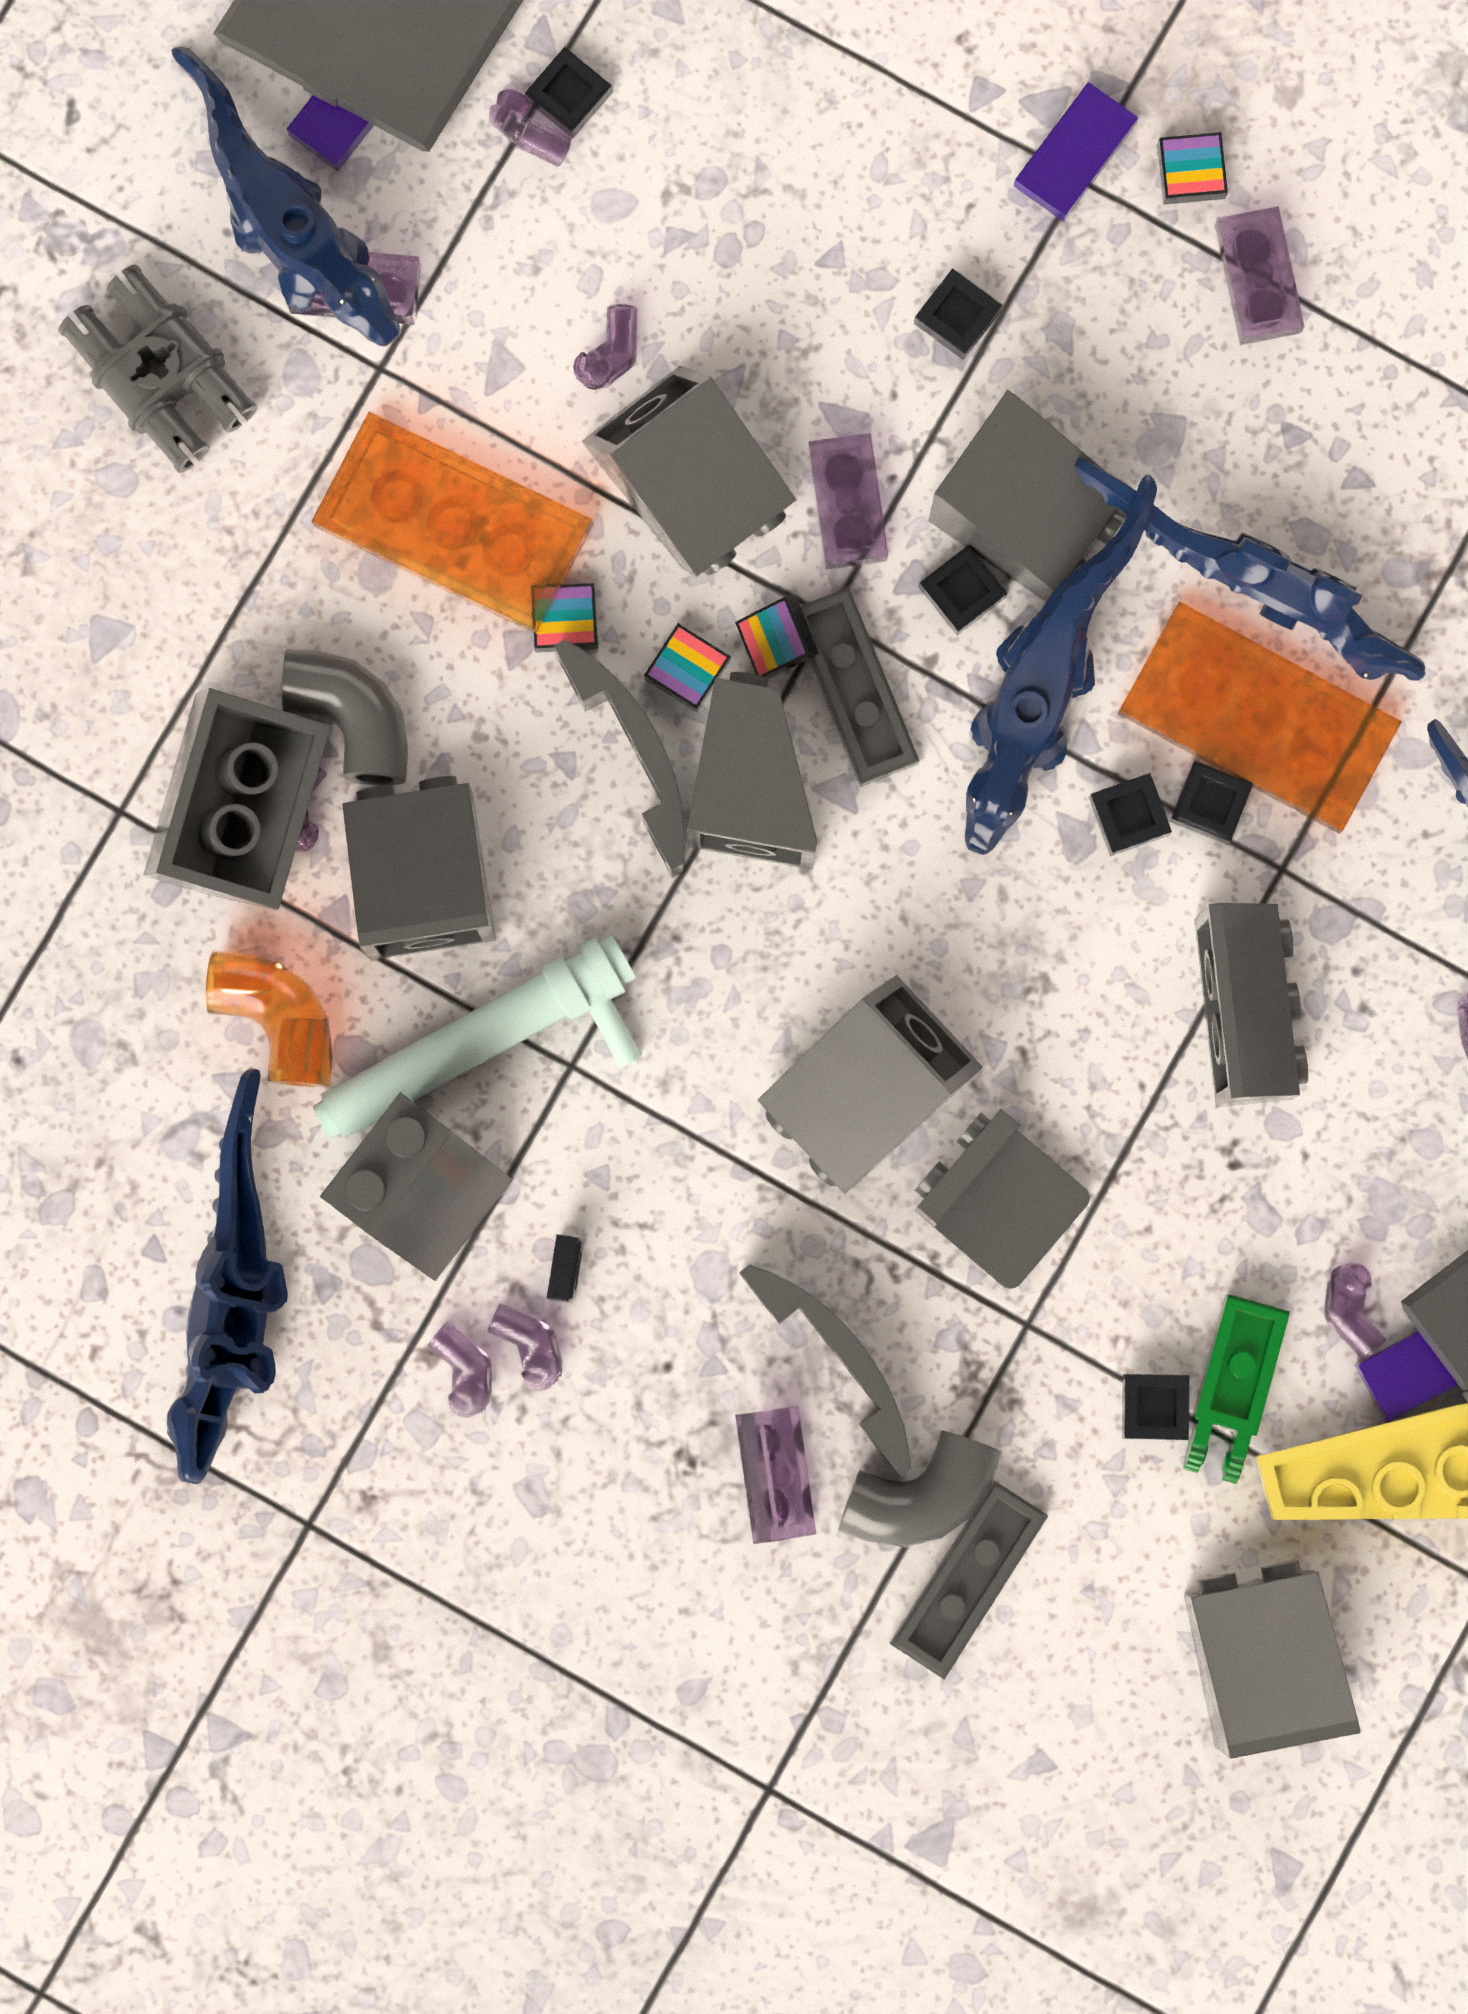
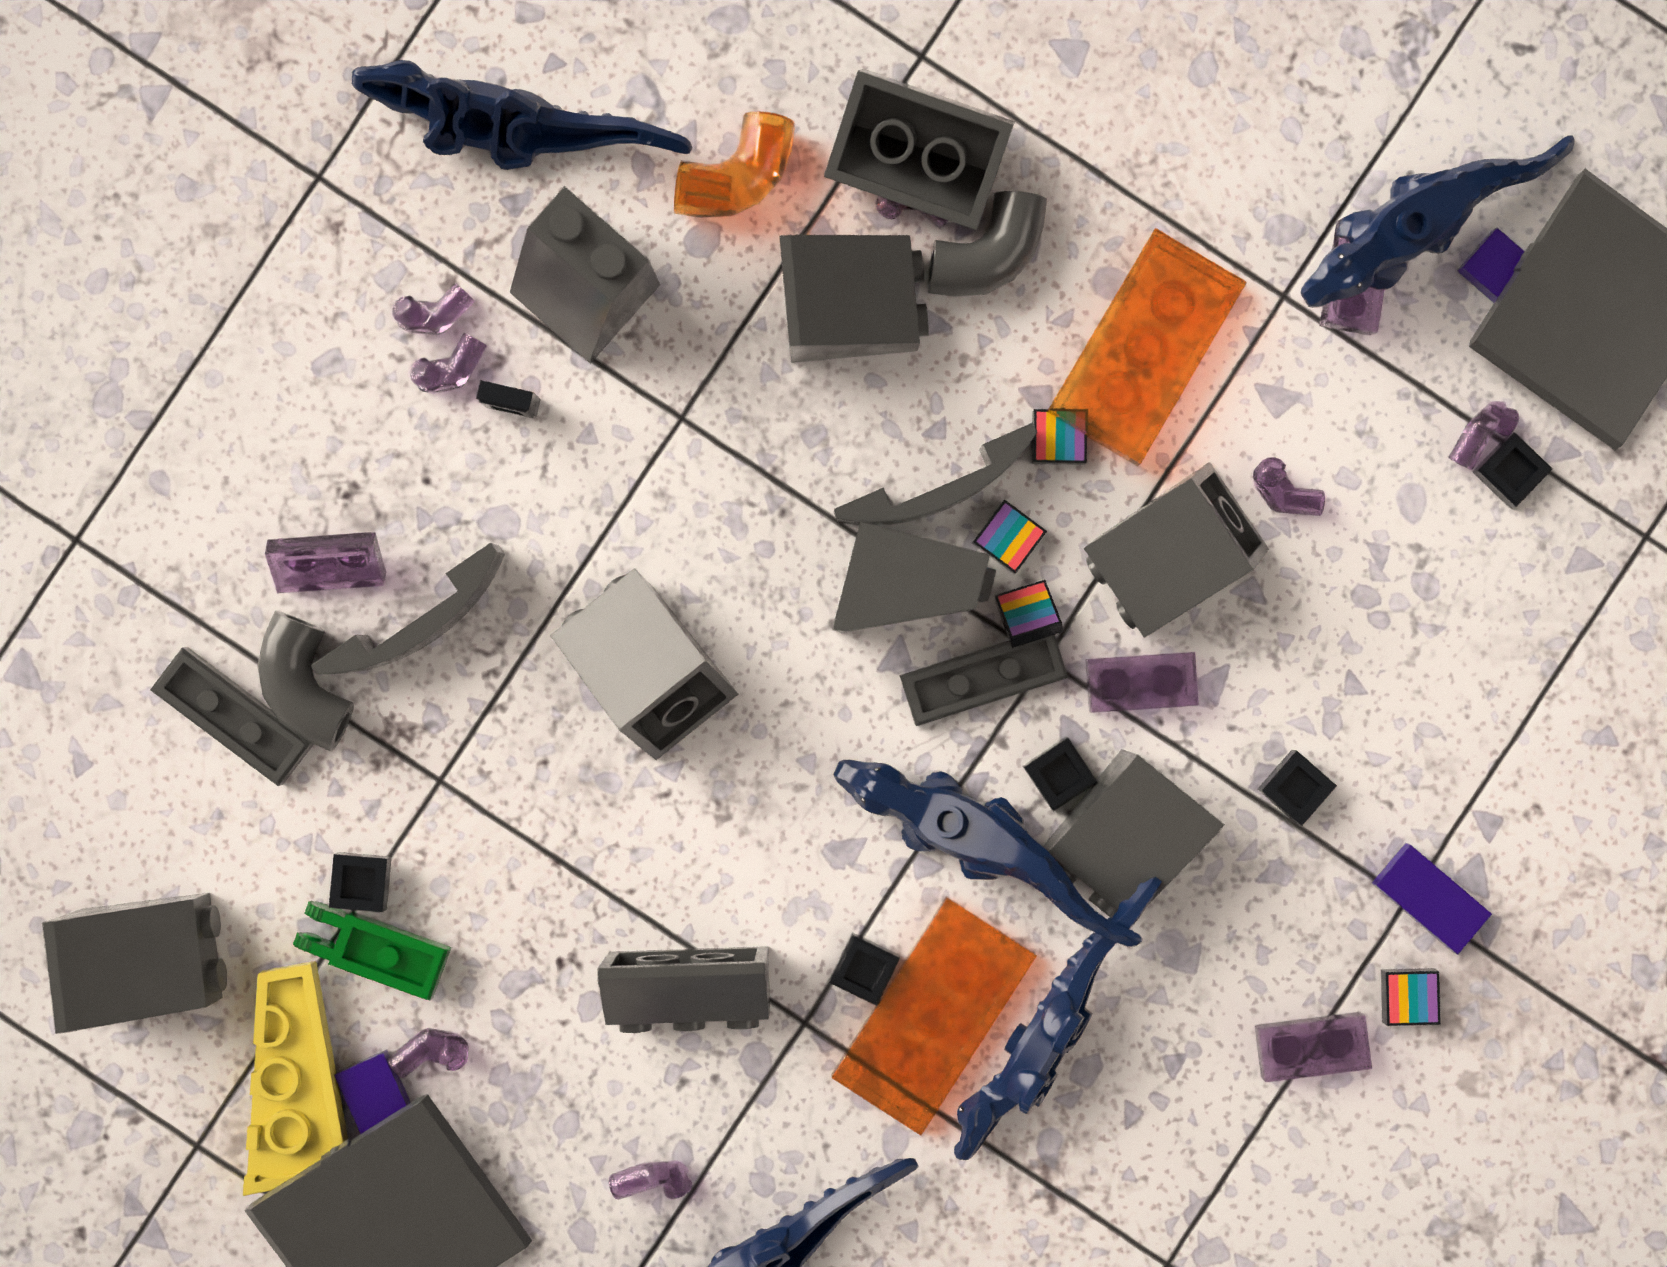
camera: 90 degrees right, 5 degrees up
(139, 393) = (1293, 80): dark grey pin -> none
(562, 990) = (741, 412): light aqua cylinder -> none
(1001, 1200) = (540, 766): dark grey bracket -> none
(1130, 814) = (857, 900): black plate -> none

